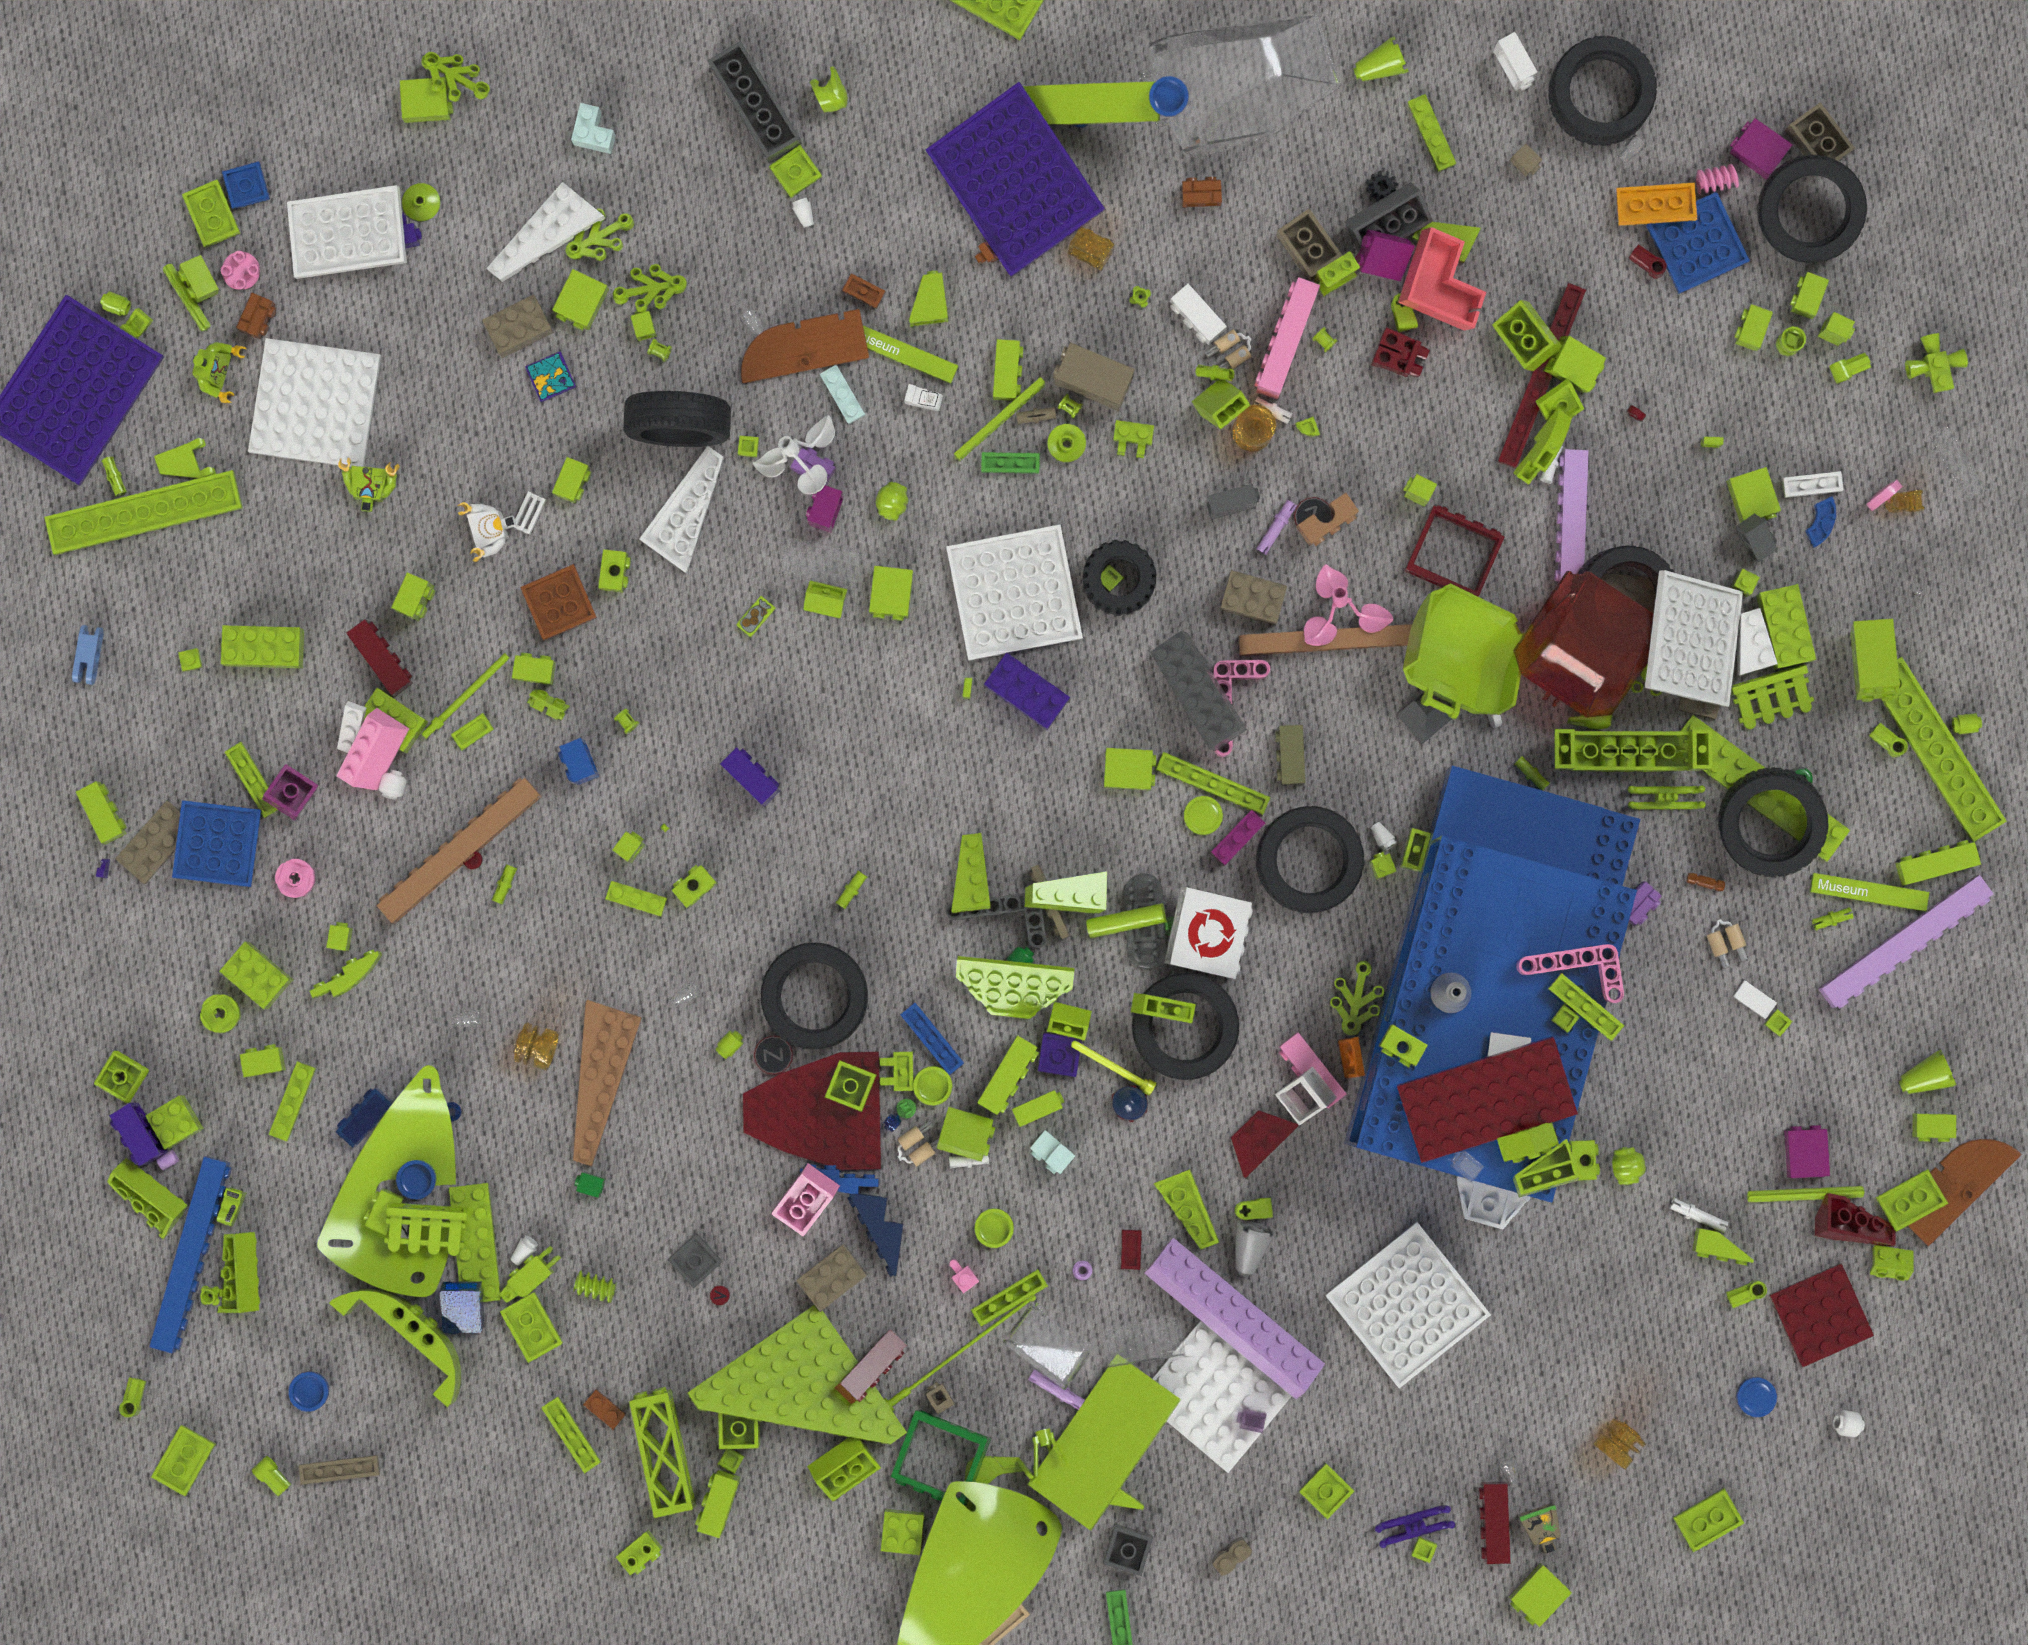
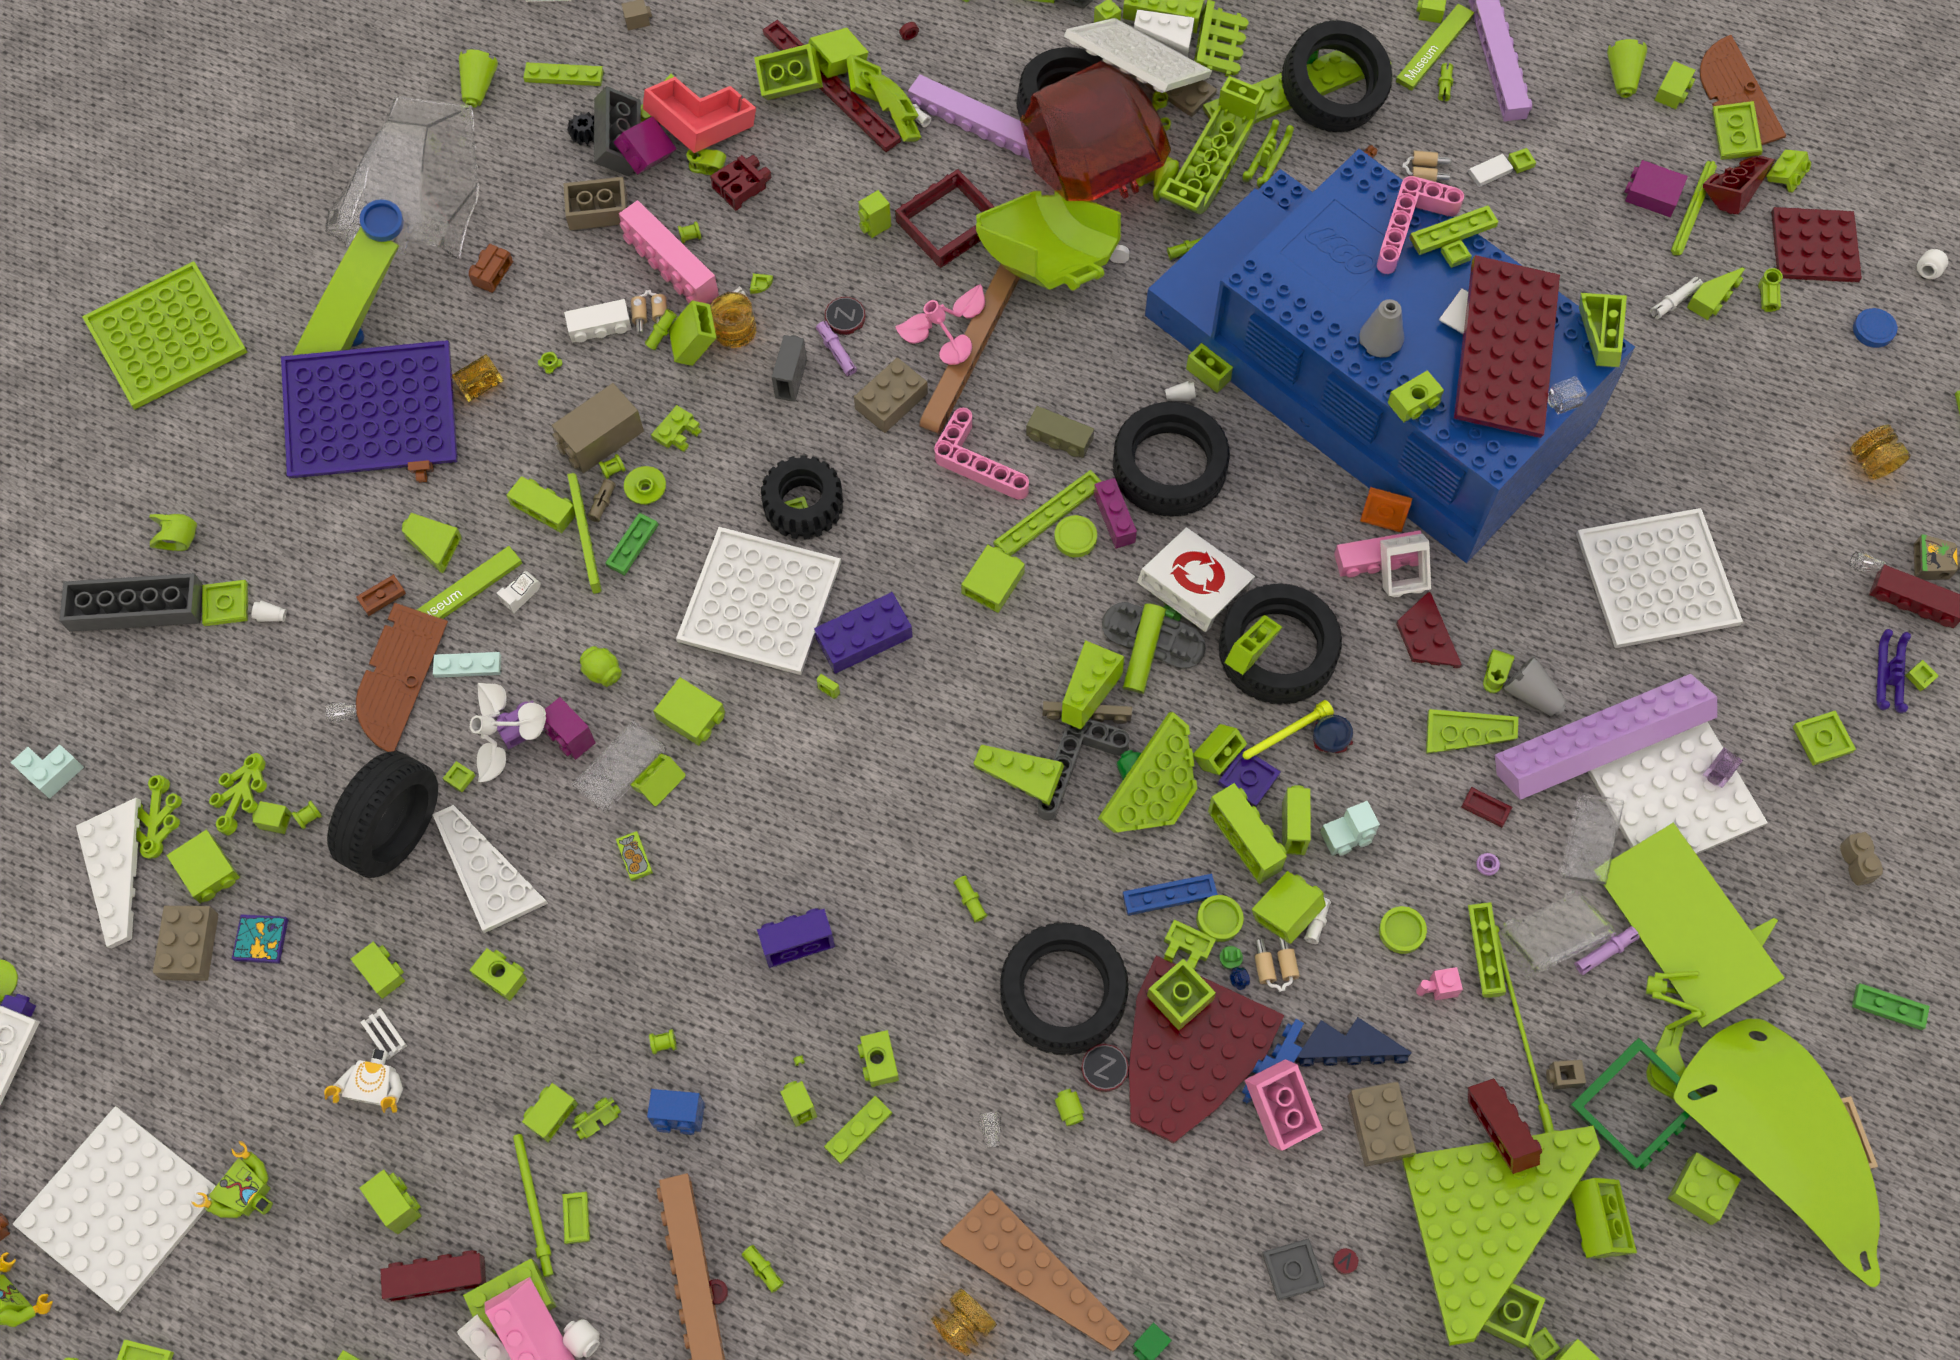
camera: 65 degrees left, 20 degrees down
(558, 602) = (495, 1050): dark orange plate -> none
(1128, 1549) = (1816, 957): dark grey brick -> none
(1198, 690) = (952, 475): dark grey brick -> none
(1314, 530) = (855, 285): medium nougat arch -> none
(1336, 274) = (633, 183): lime panel -> none
(1356, 1001) = (1330, 485): lime plant -> none
(1382, 865) = (1210, 401): lime brick -> none
(1423, 720) = (1085, 309): dark grey slope -> none
(1488, 1203) = (1586, 463): white wing -> none
(1528, 1143) = (1569, 331): lime brick -> none

